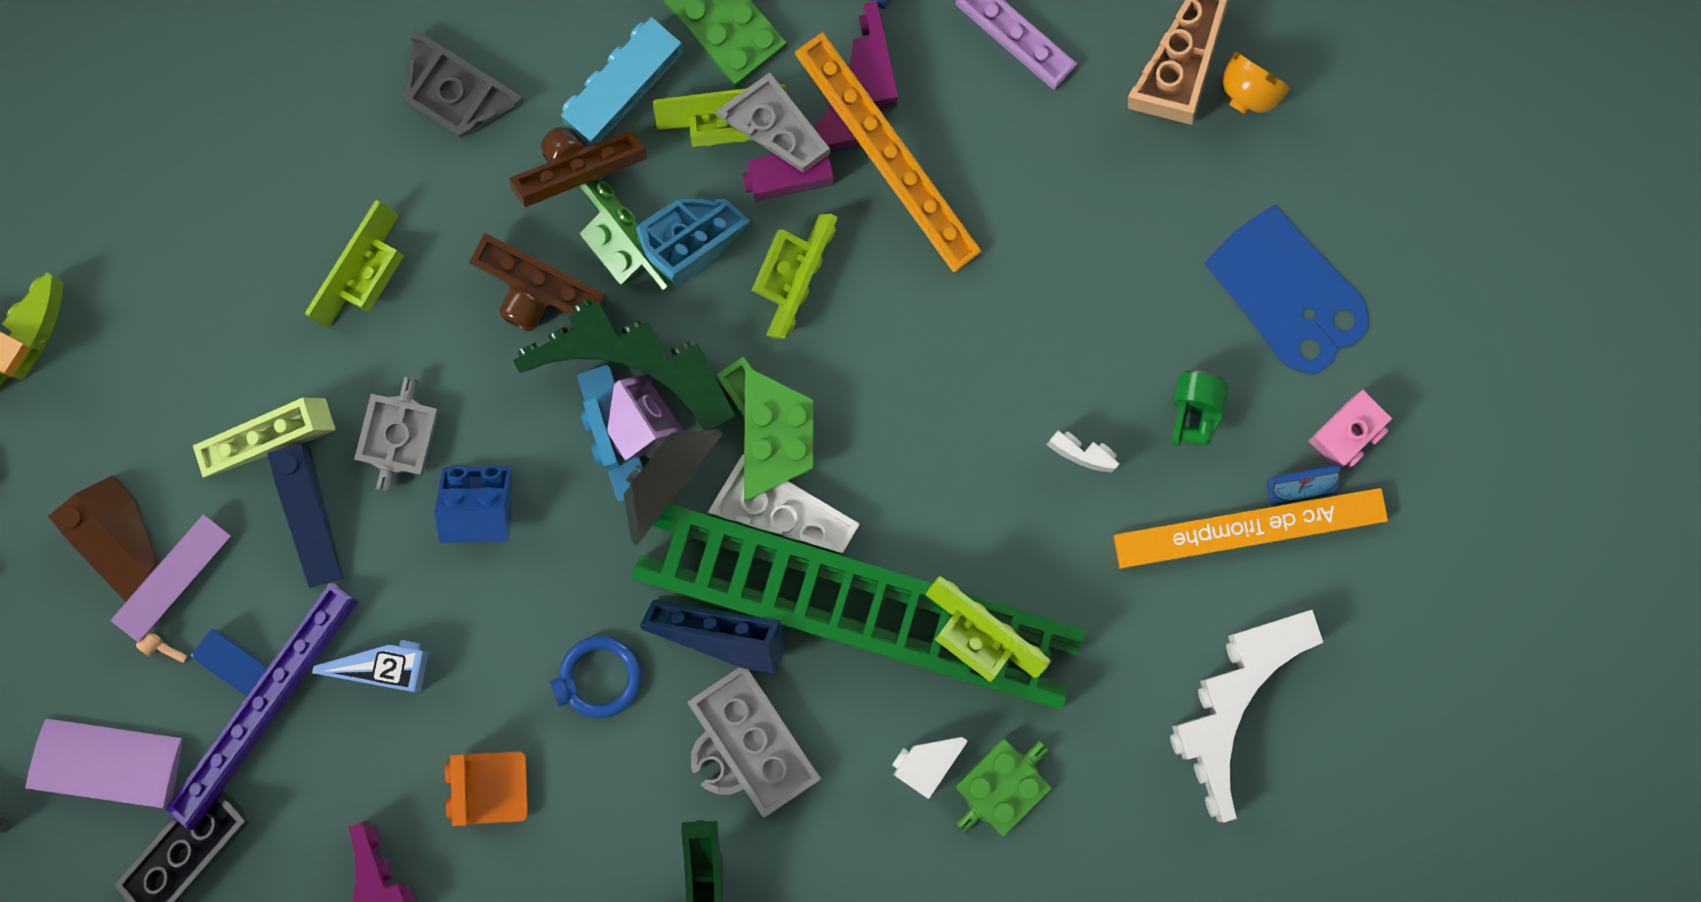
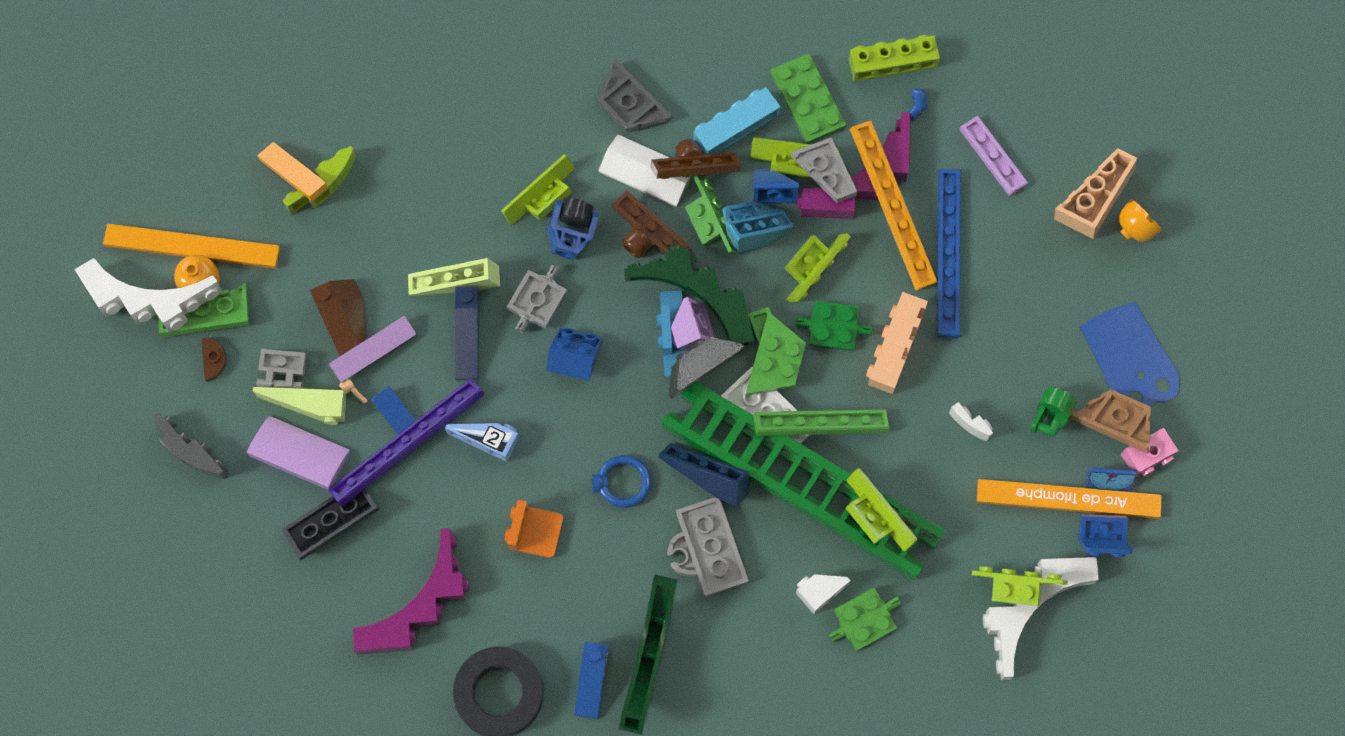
camera: 20 degrees right, 10 degrees down
(43, 634) = (281, 363): none -> light grey plate
(118, 683) = (316, 403): none -> yellowish green slope
(418, 288) = (576, 214): none -> blue piece
(479, 187) = (631, 165): none -> white slope
(702, 170) = (773, 188): none -> blue slope
(846, 358) = (834, 326): none -> green plate
(865, 514) = (821, 422): none -> bright green tile
(945, 364) = (897, 342): none -> light nougat wedge
(987, 201) = (948, 253): none -> blue tile
(1211, 686) = (1018, 588): none -> lime bracket
(1294, 392) = (1118, 418): none -> medium nougat wing
(1316, 573) = (1104, 534): none -> blue bracket

